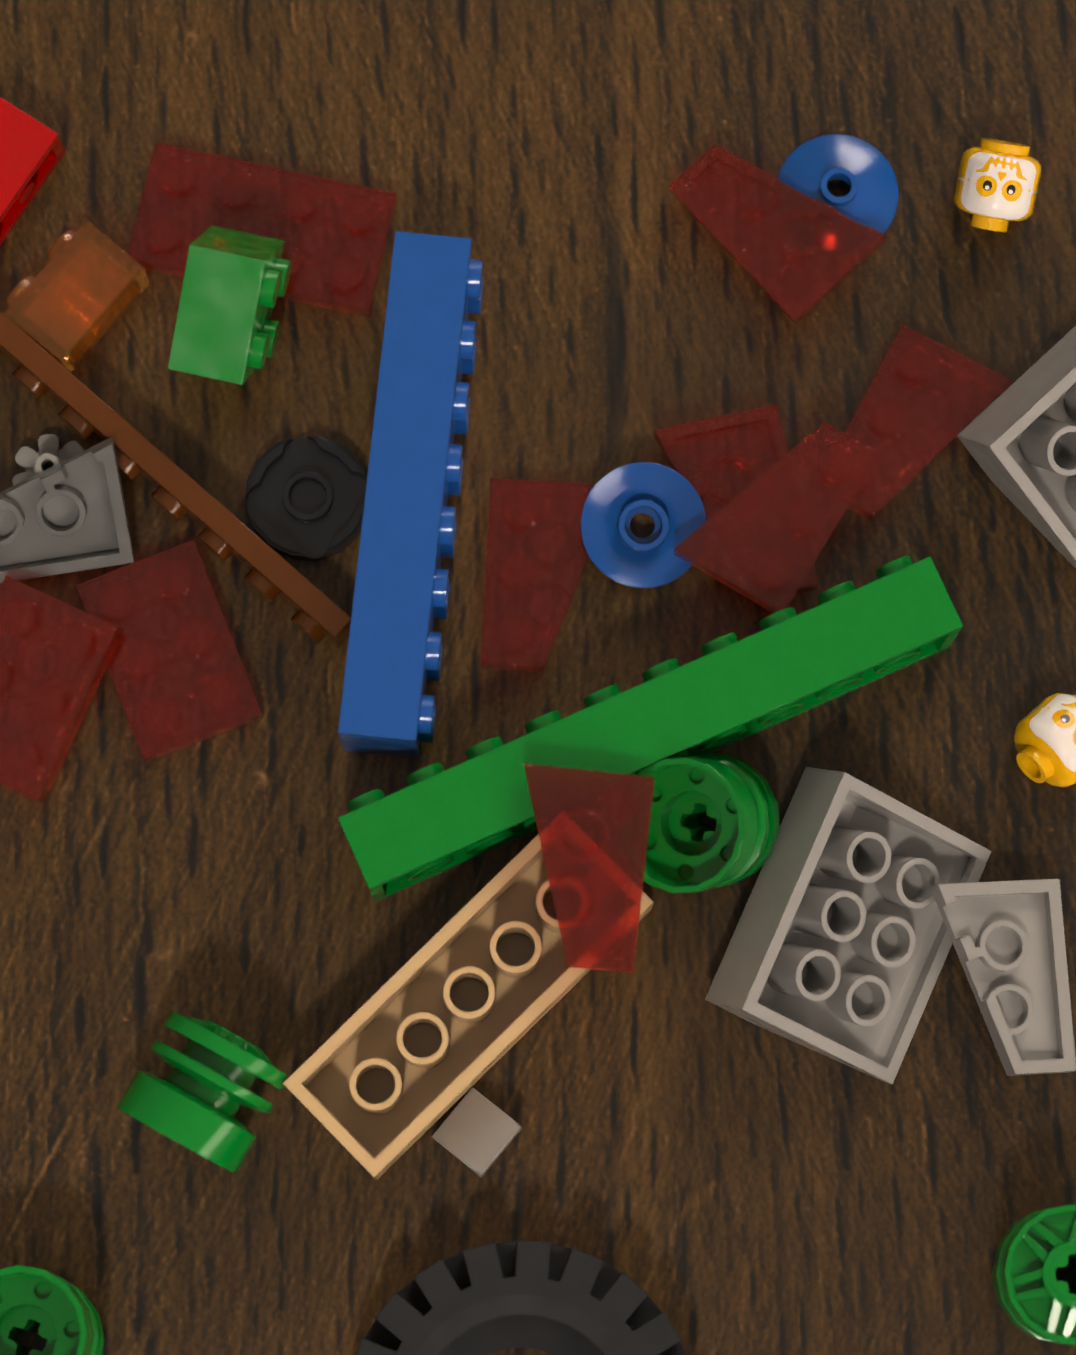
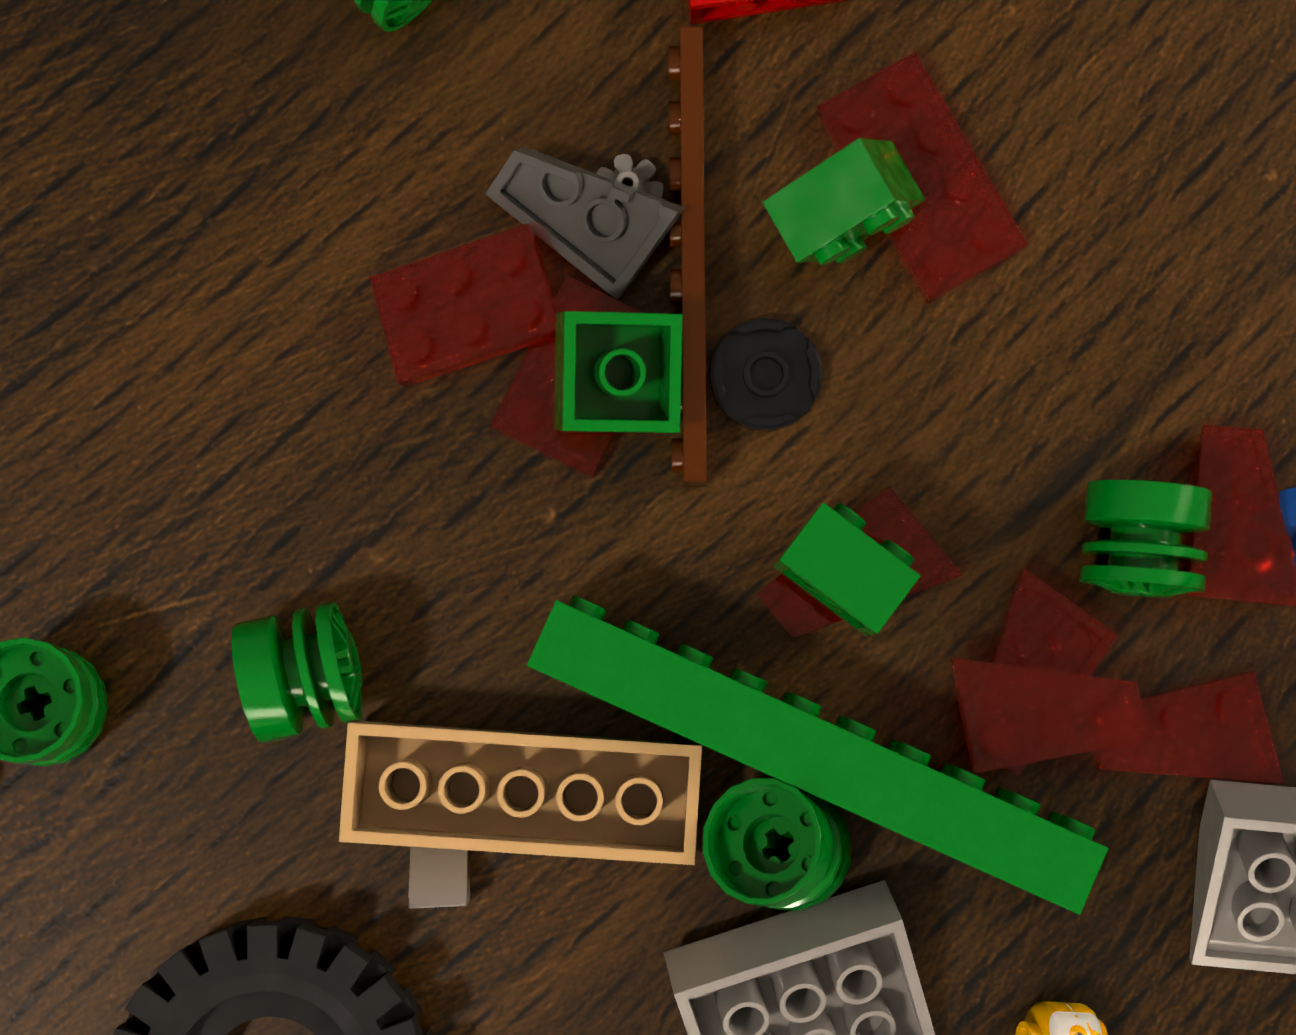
camera: 55 degrees right, 5 degrees up
(76, 294) = (761, 95): clear orange brick -> none
(197, 607) = (618, 372): none -> green brick
(407, 496) = (836, 433): blue brick -> none
(524, 565) = (848, 568): none -> green brick
(594, 857) = (685, 803): clear red wing -> none
(607, 517) = (977, 635): blue dish -> none
(709, 305) = (1145, 536): none -> green wheel

